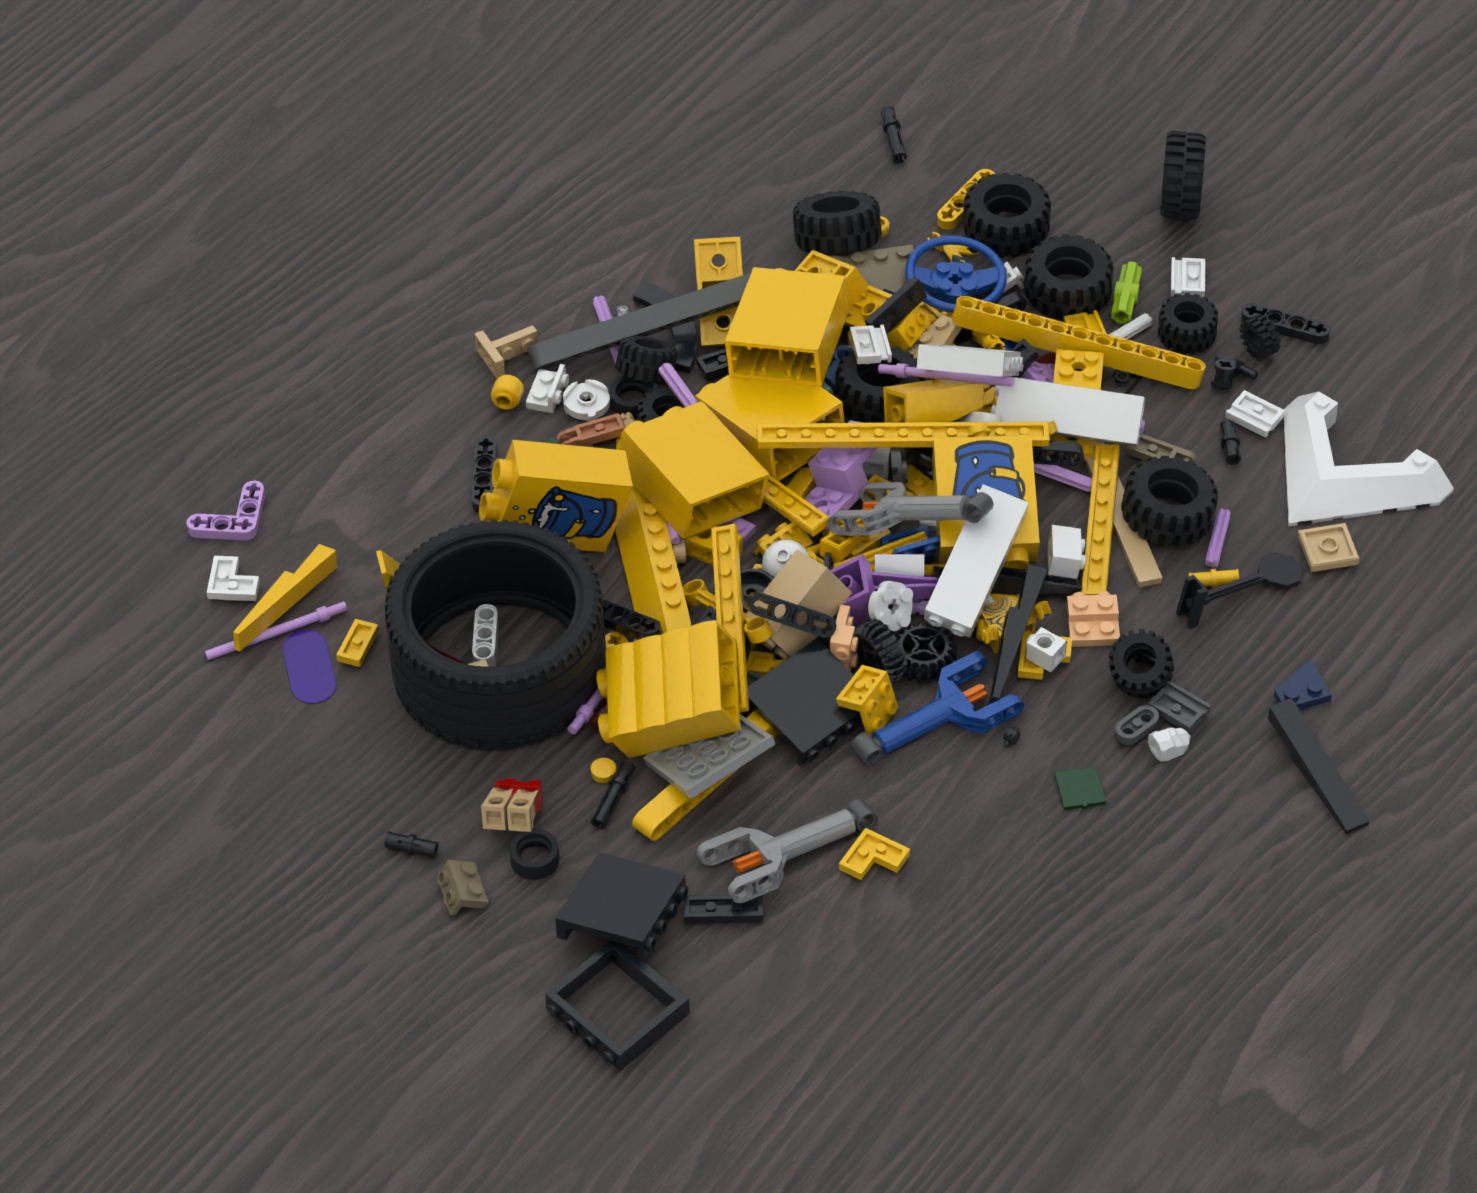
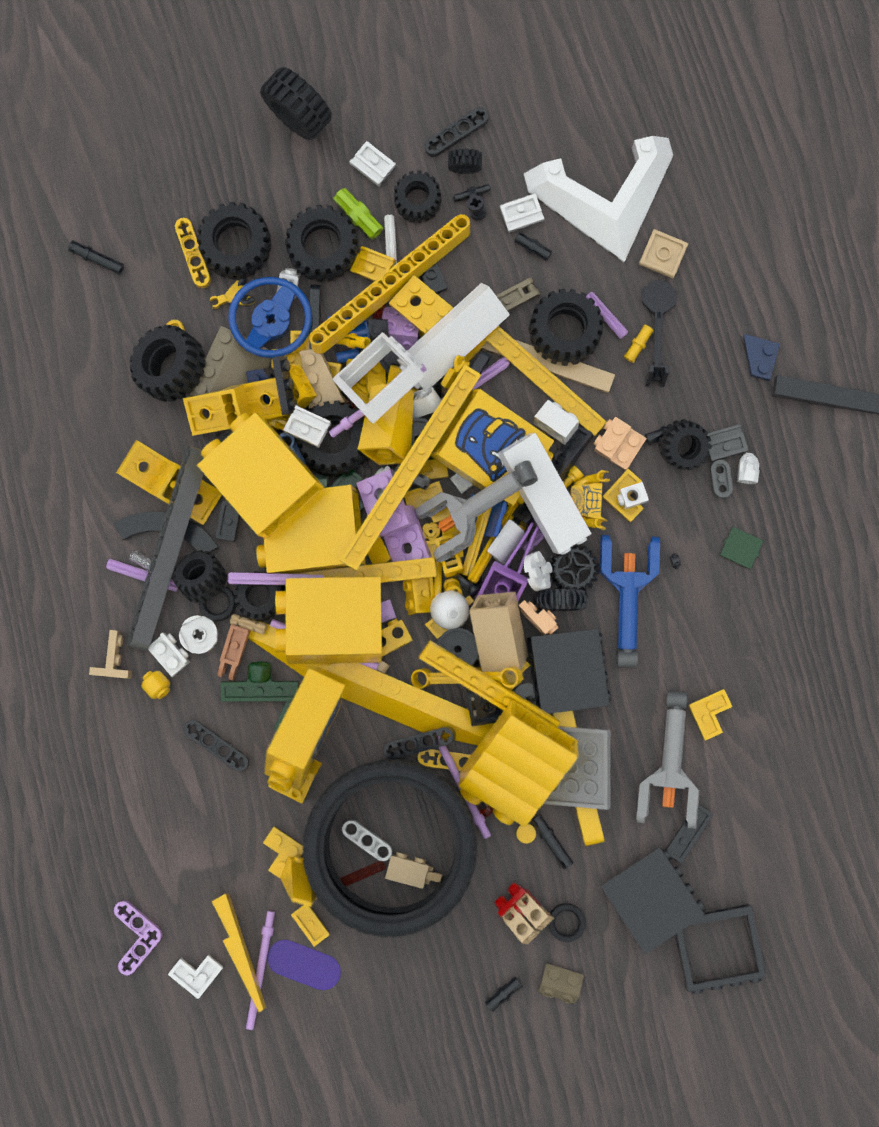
camera: 50 degrees left, 35 degrees up
(790, 614) = (521, 649): black beam -> none
(871, 695) = (595, 635): yellow bracket -> none
(979, 430) = (449, 419): yellow plate -> none
(1014, 627) = (608, 506): black slope -> none

